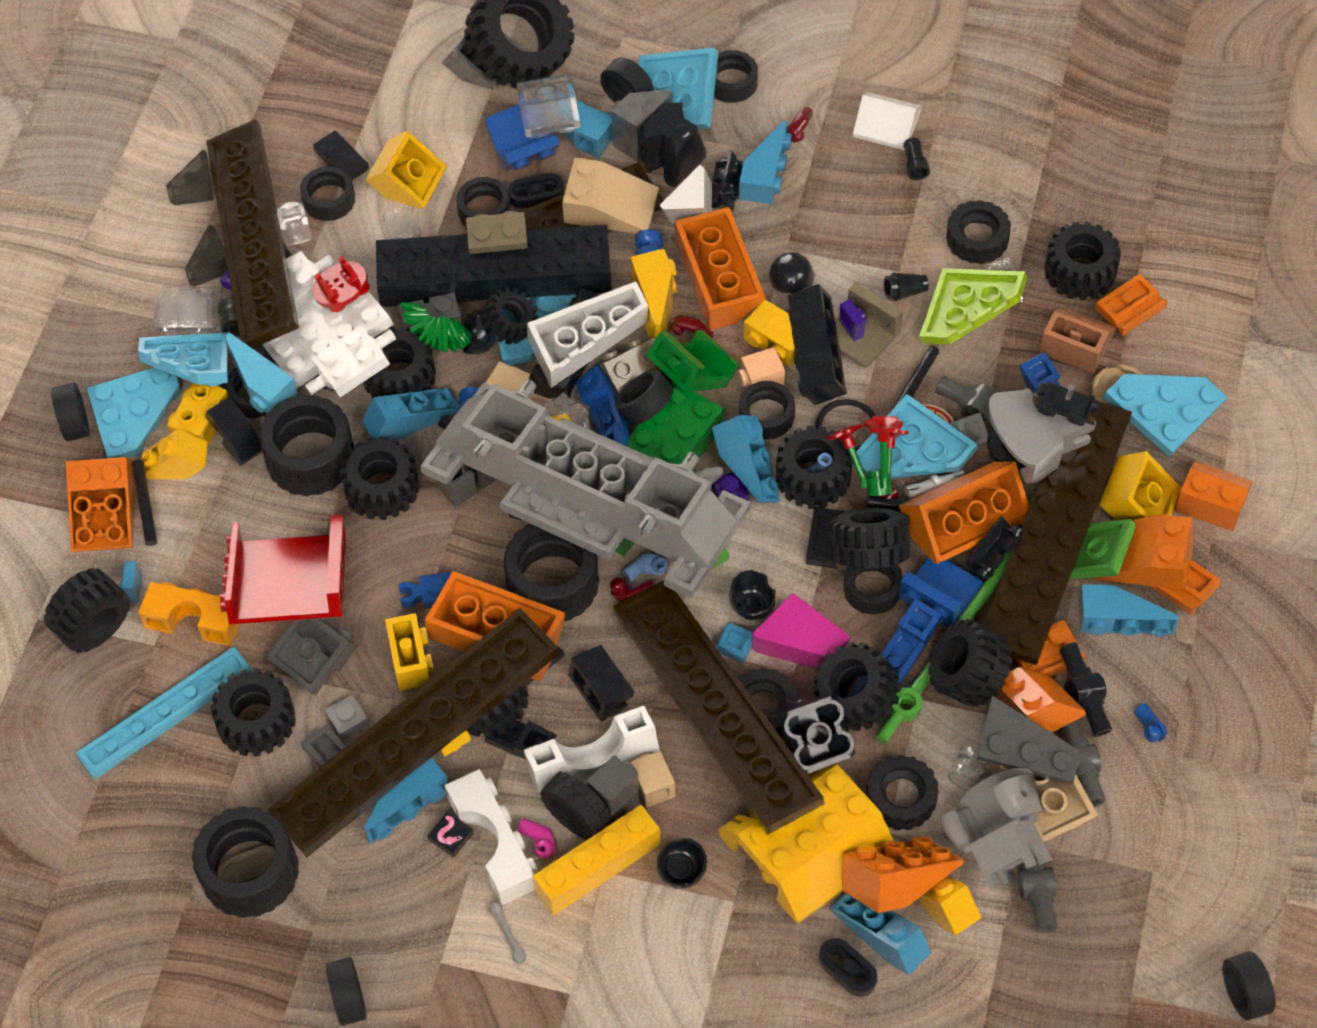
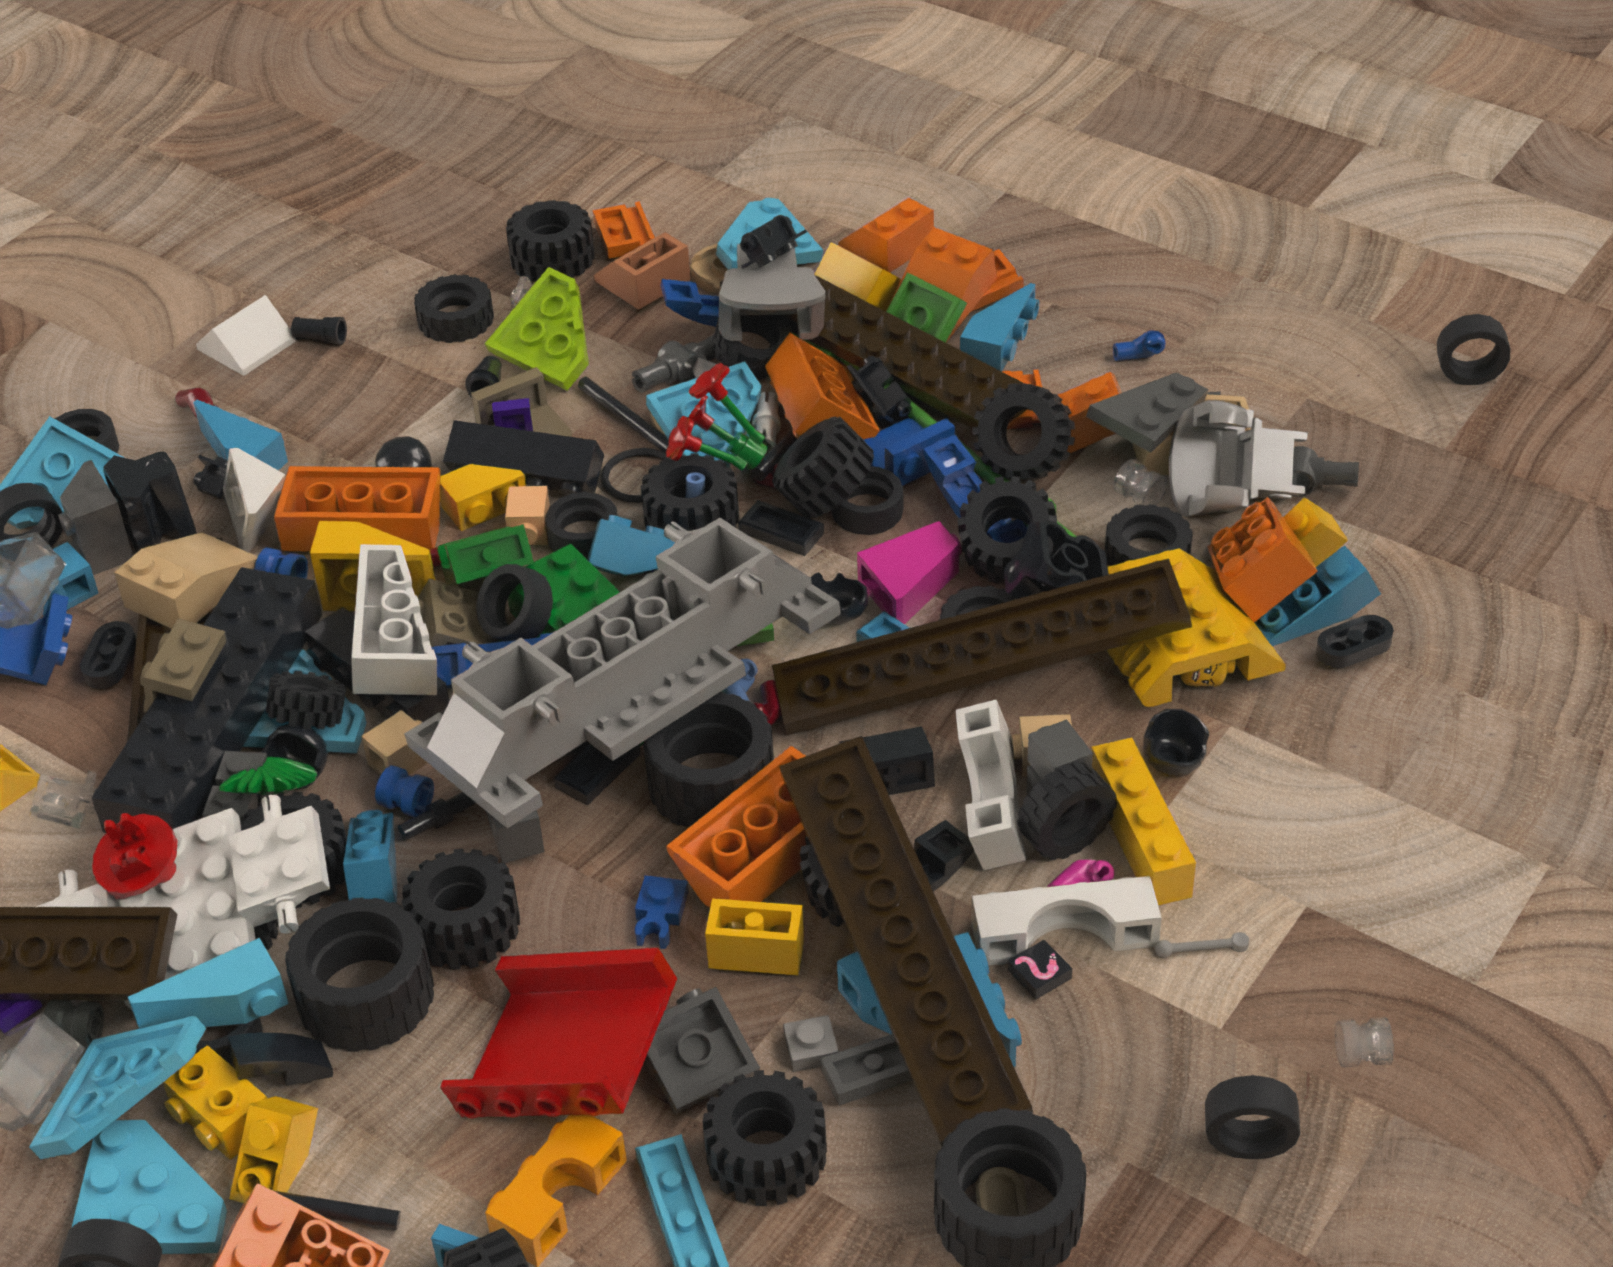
camera: 70 degrees left, 15 degrees down
(482, 187) = (82, 689): black tyre -> none
(1086, 689) = (1063, 373): black pin -> none

